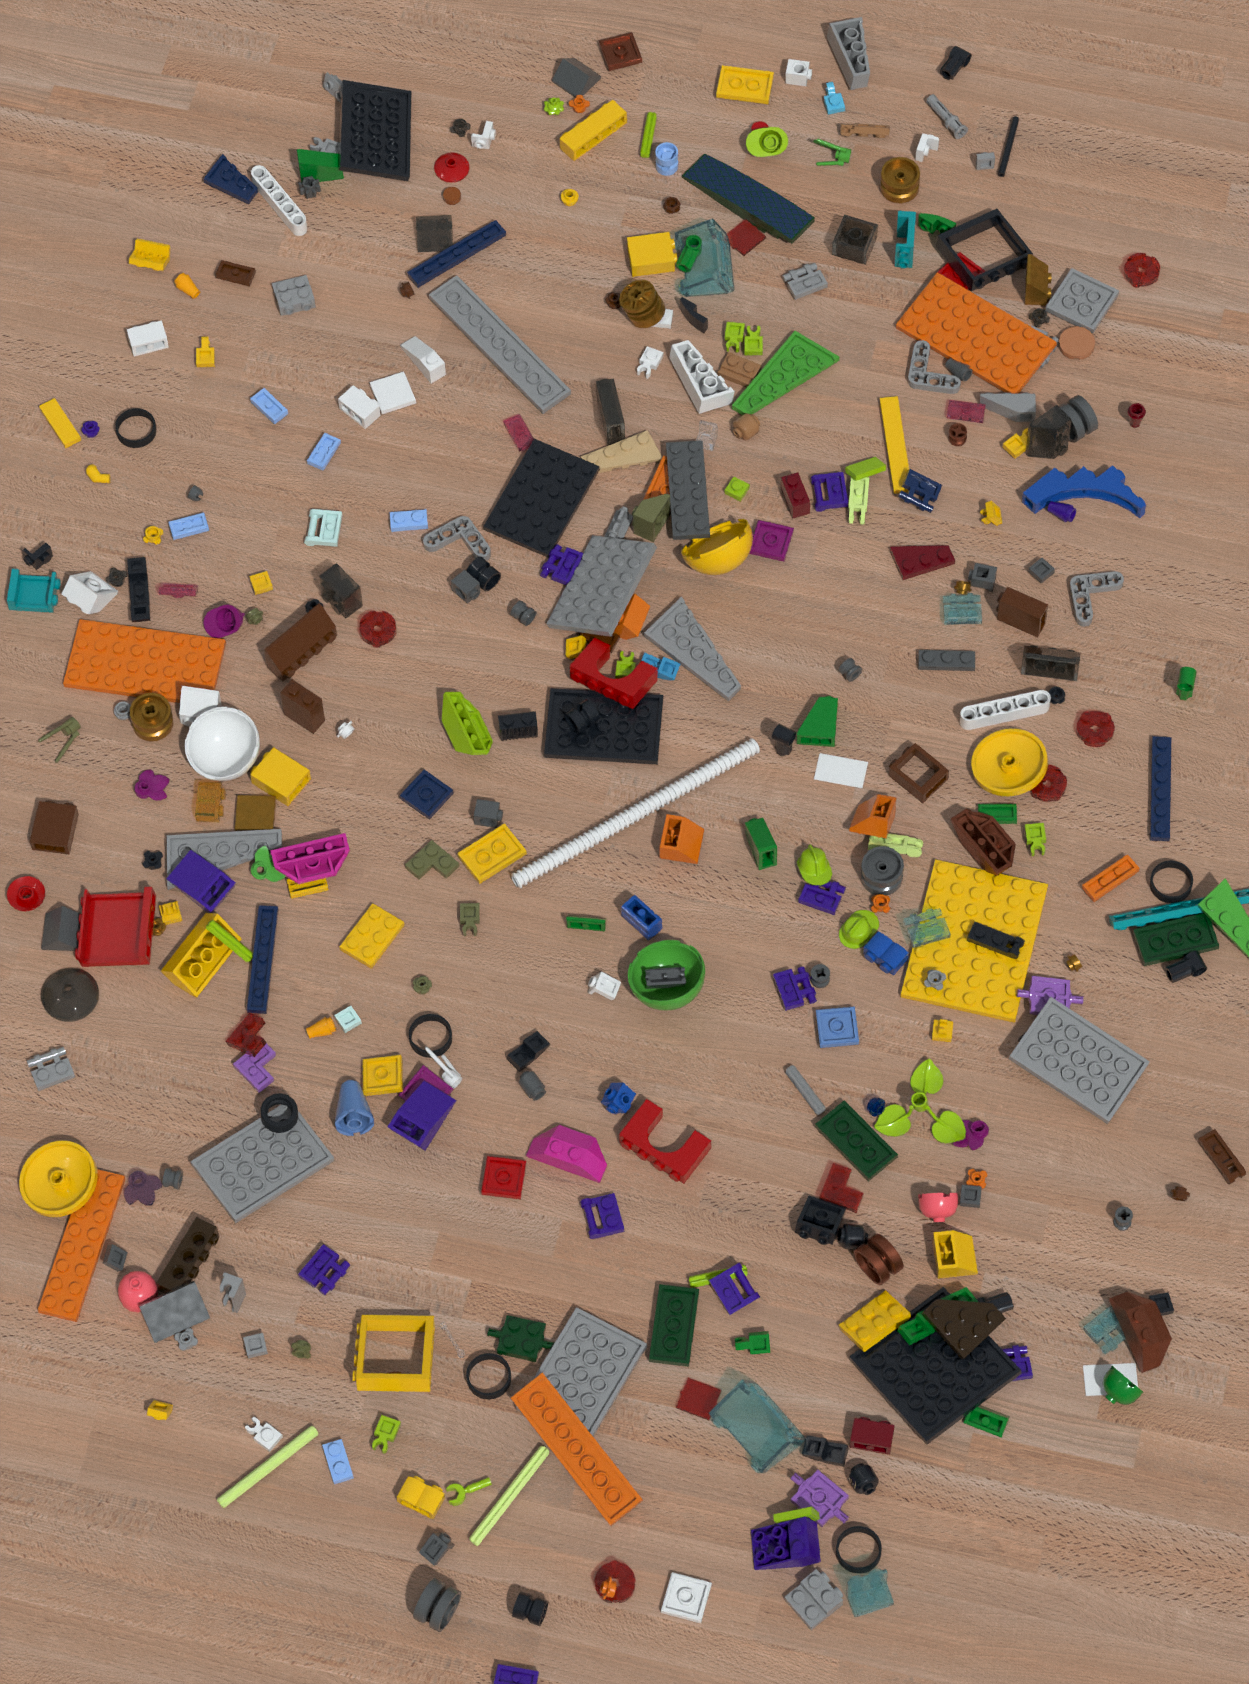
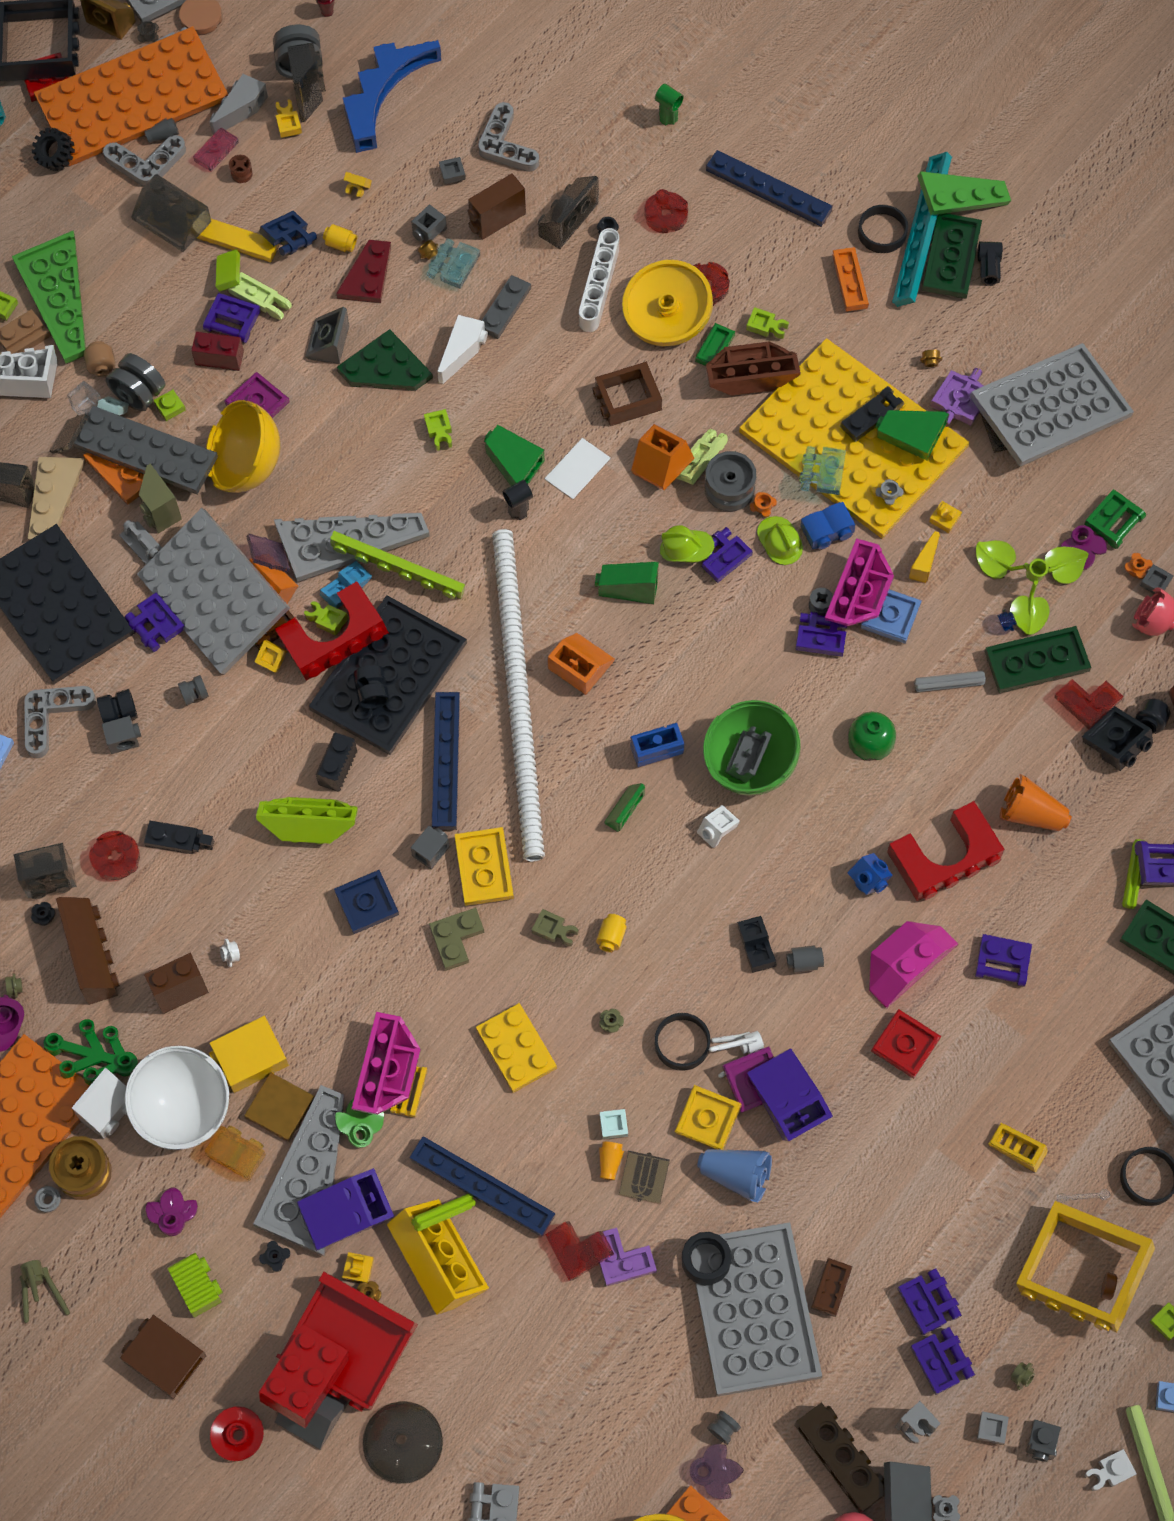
camera: 65 degrees left, 5 degrees up
(76, 907) = (303, 1376): none -> red brick
(109, 822) = (195, 1285): none -> lime brick
(231, 686) = (92, 1055): none -> green plant
(263, 1382) = (1043, 1441): none -> dark grey bracket
(282, 1291) = (935, 1363): none -> dark purple plate
(302, 1204) = (831, 1287): none -> reddish brown plate
(322, 1056) = (644, 1177): none -> clear smoke piece
(411, 658) = (177, 838): none -> black hinge
(465, 1295) = (1032, 1144): none -> yellow slope
(485, 955) = (611, 933): none -> yellow brick
(521, 1338) = (1117, 1118): dark green plate -> none
(558, 793) = (446, 760): none -> dark blue plate
(650, 604) = (267, 553): none -> piece
(674, 438) = (69, 434): none -> clear smoke piece
(687, 697) = (404, 568): none -> lime plate
(713, 454) = (113, 405): none -> light aqua plate
(730, 1183) = (1033, 806): none -> orange cone
(731, 1056) = (872, 736): none -> green cylinder
(735, 456) = (135, 382): none -> dark grey wheel
(817, 664) = (438, 427): none -> lime plate
(841, 992) = (861, 585): none -> dark pink wedge
(850, 561) = (329, 336): none -> dark grey slope
(850, 607) = (385, 365): none -> dark green plate
(850, 669) = (464, 399): dark grey wheel -> none
(888, 408) = (170, 213): none -> clear smoke slope
(895, 646) = (462, 346): none -> white slope
(897, 309) = (43, 145): none -> black tyre
(897, 1030) = (922, 566): none -> yellow slope
(937, 526) = (340, 238): none -> yellow brick
(992, 972) = (912, 430): none -> green slope
(1008, 1140) = (1108, 514): none -> green plate
(1063, 511) = (393, 119): dark purple cone -> none

